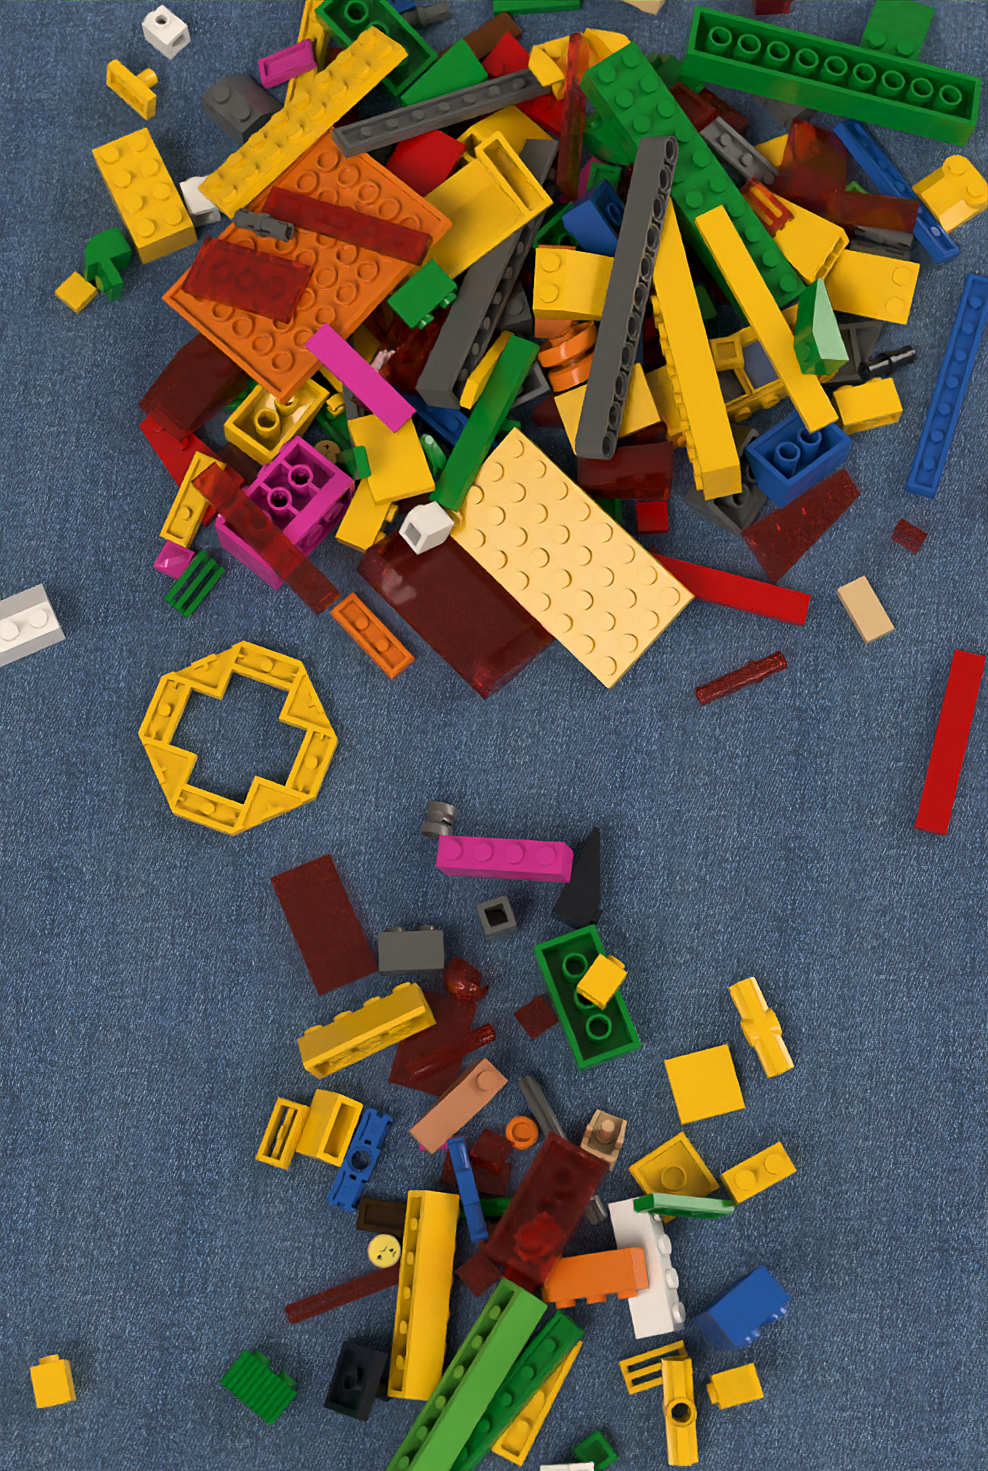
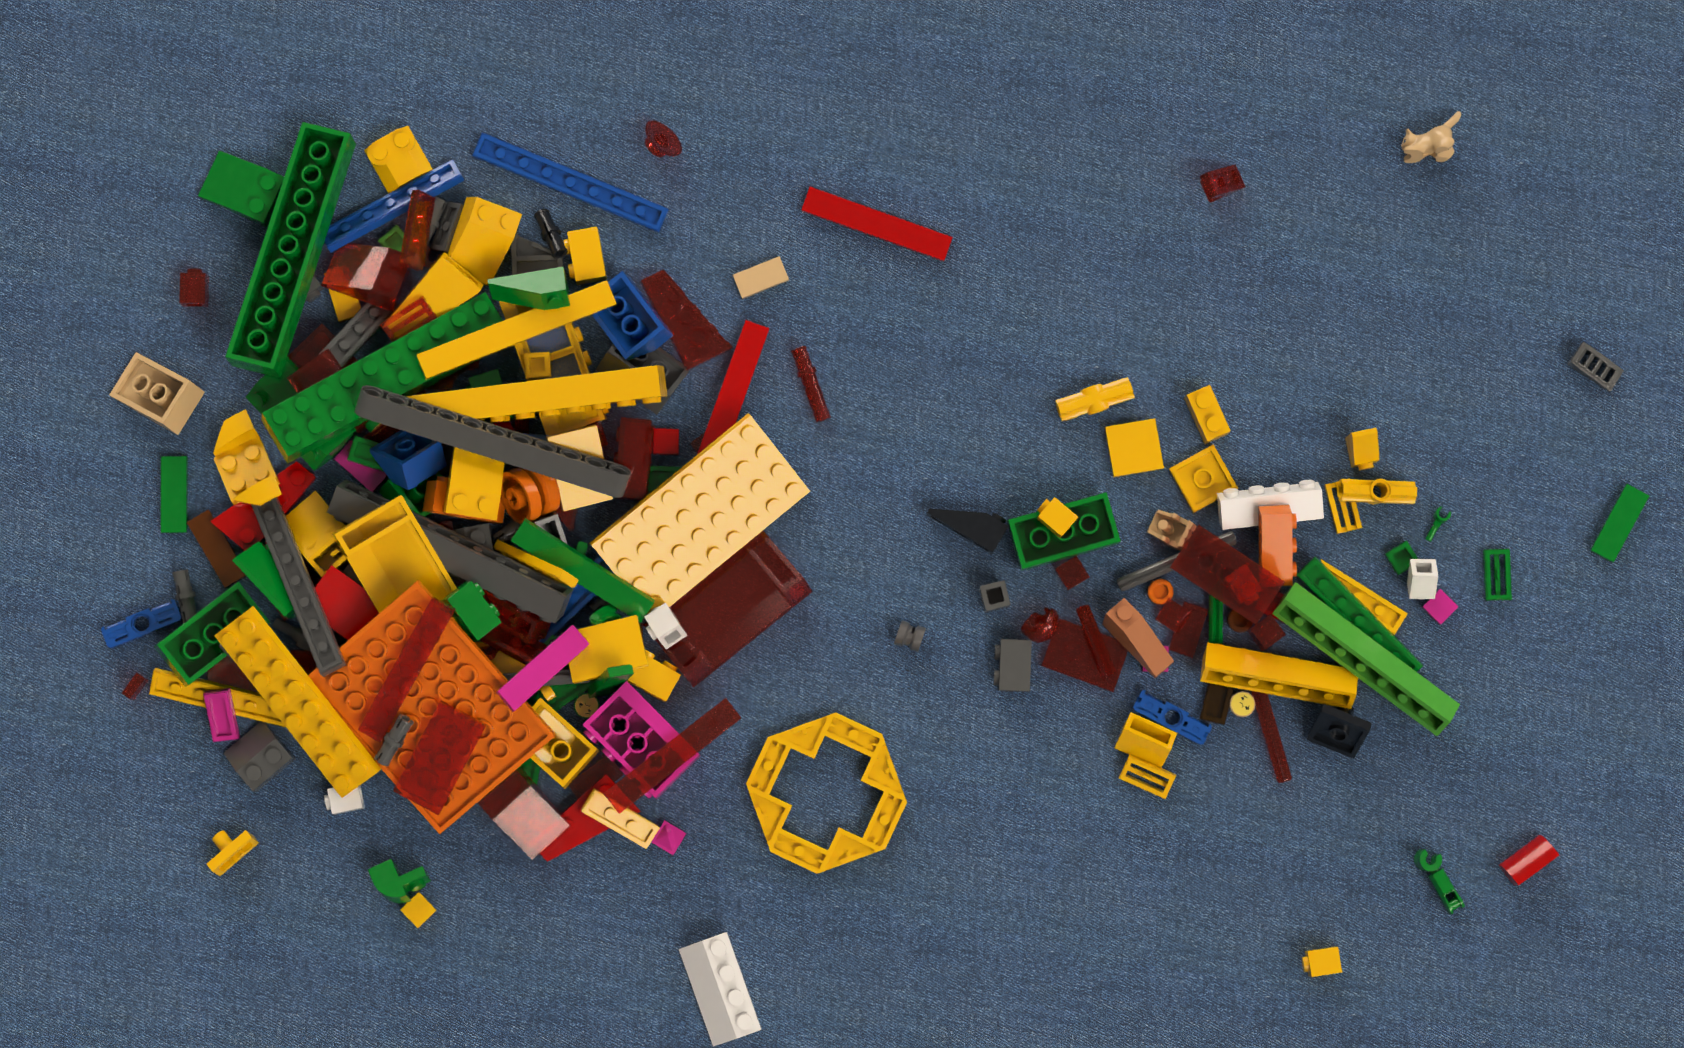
camera: 90 degrees left, 10 degrees up
(145, 195) = (336, 845): yellow brick -> none
(165, 32) = (178, 820): white brick -> none
(209, 564) = (694, 819): green tile -> none
(260, 1386) = (1336, 804): green brick -> none
(324, 925) = (984, 733): clear red tile -> none
(365, 1030) = (1075, 705): yellow slope -> none
(372, 636) = (749, 677): orange tile -> none
(467, 1189) = (1204, 635): blue piece -> none
(505, 858) = (948, 585): dark pink brick -> none
(572, 118) = (308, 471): clear red tile -> none
(683, 1206) = (1230, 472): green tile -> none
(741, 1309) = (1316, 436): blue brick -> none
(908, 536) = (702, 234): clear red tile -> none

